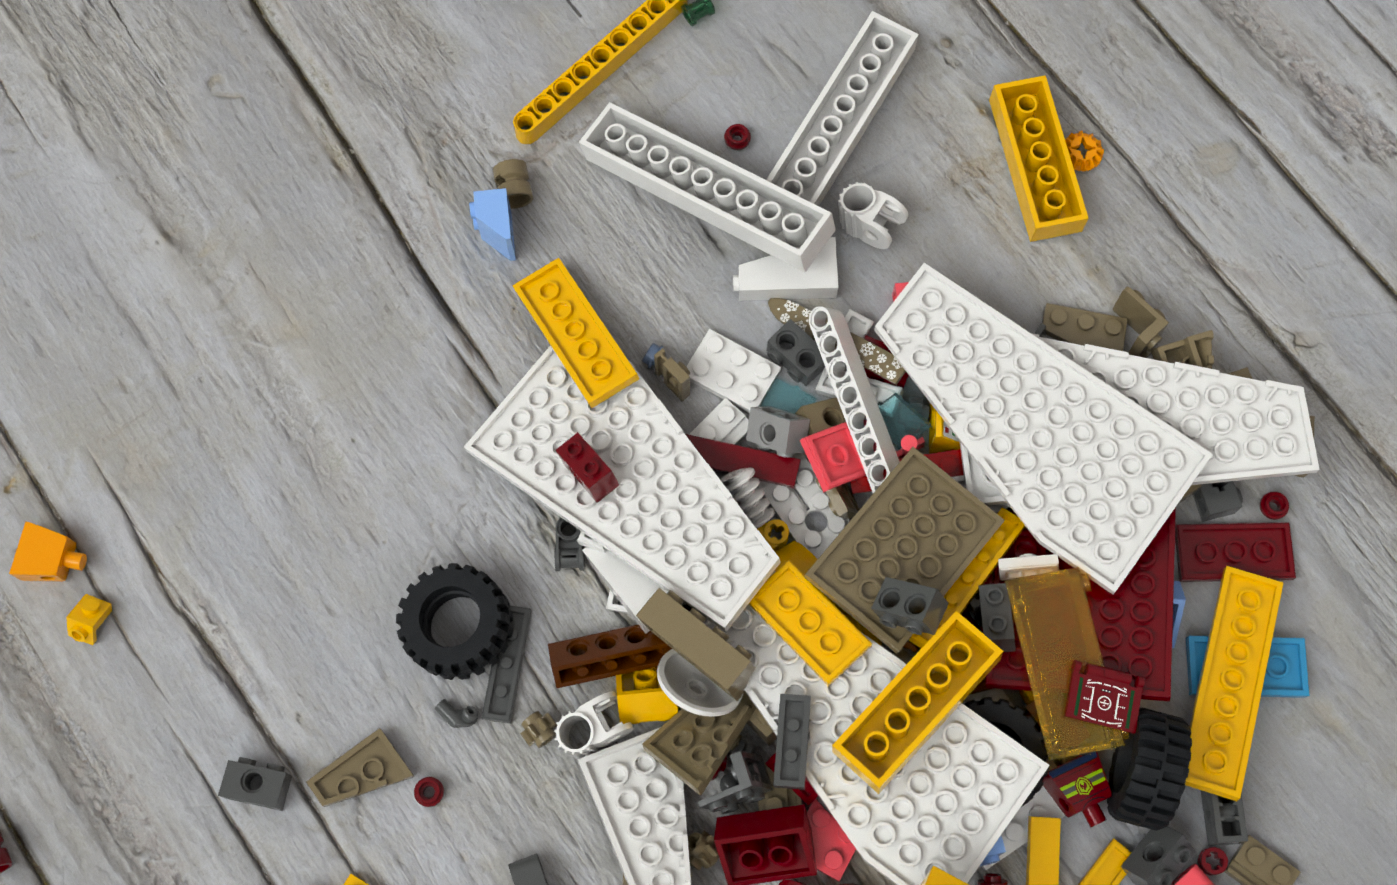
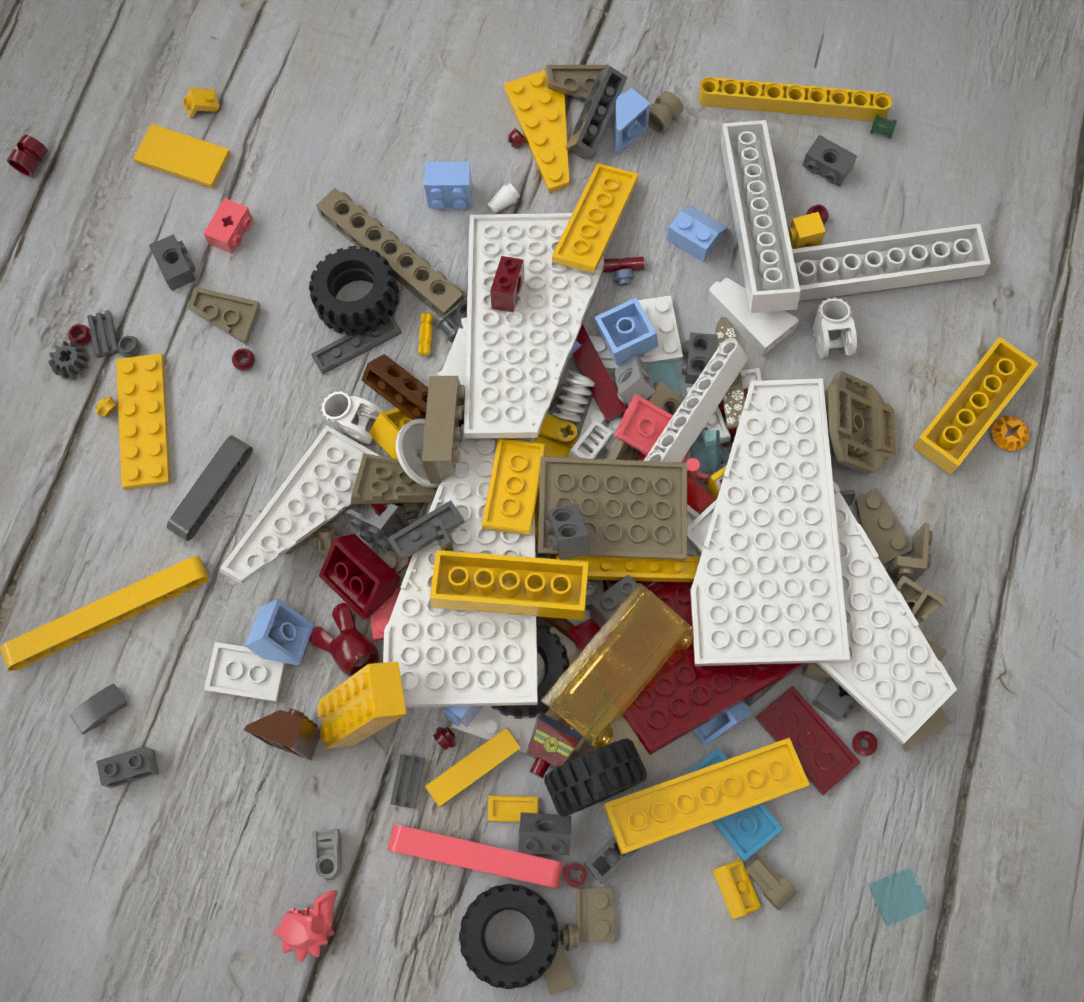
camera: 55 degrees right, 0 degrees up
(45, 555) = (218, 50): light orange torso -> none
(133, 685) = (182, 155): none -> yellow tile
(251, 686) = (228, 226): none -> coral brick
(335, 563) = (336, 203): none -> dark tan brick
(411, 296) = (543, 124): none -> yellow wing
(413, 230) = (573, 79): none -> dark tan wing
(416, 337) = (516, 138): none -> dark red hinge
(417, 442) = (448, 185): none -> light blue brick
(459, 717) = (300, 340): dark grey arm -> none
(463, 244) = (596, 112): none -> dark grey brick
(473, 401) = (503, 199): none -> white cone
(538, 729) = (326, 386): dark tan gear -> none
(555, 588) = (425, 334): none -> yellow axle
(642, 342) = (616, 264): none -> dark red piece
(664, 255) = (695, 232): none -> light blue slope
(674, 374) = (618, 293): dark tan plate -> none
(701, 71) = (825, 150): none -> dark grey brick
(722, 396) = (626, 331): none -> light blue brick
(757, 156) = (806, 231): none -> yellow brick
(810, 538) = (580, 452): none -> white slope
(813, 729) = (442, 536): none -> dark grey tile
(982, 267) = (859, 424): none -> dark tan piece
(1027, 565) = (671, 598): white plate -> none
(1104, 697) = (613, 706): dark red piece -> none
(1326, 723) = (736, 889): none -> yellow slope
(1351, 687) = (774, 886): none -> dark tan piece

